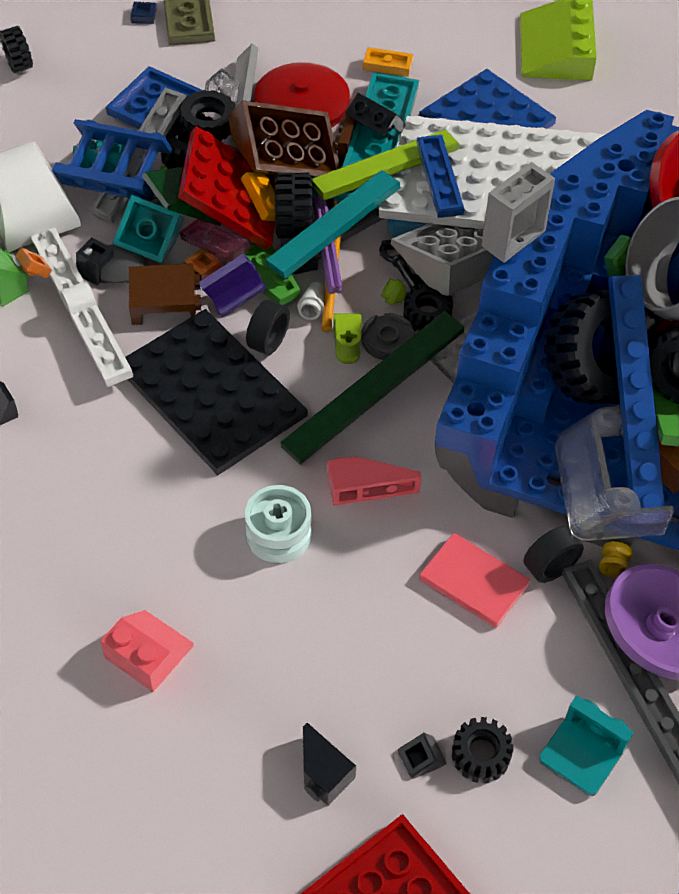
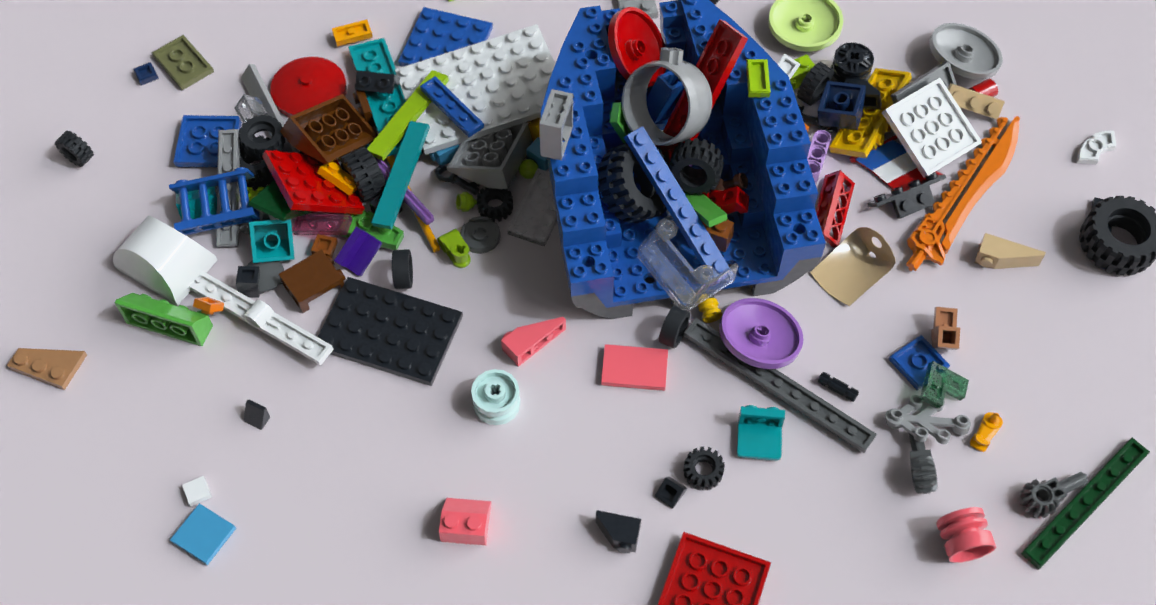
camera: 30 degrees left, 5 degrees up
(312, 302) = (416, 236): white cone -> none
(371, 387) = (495, 276): dark green tile -> none

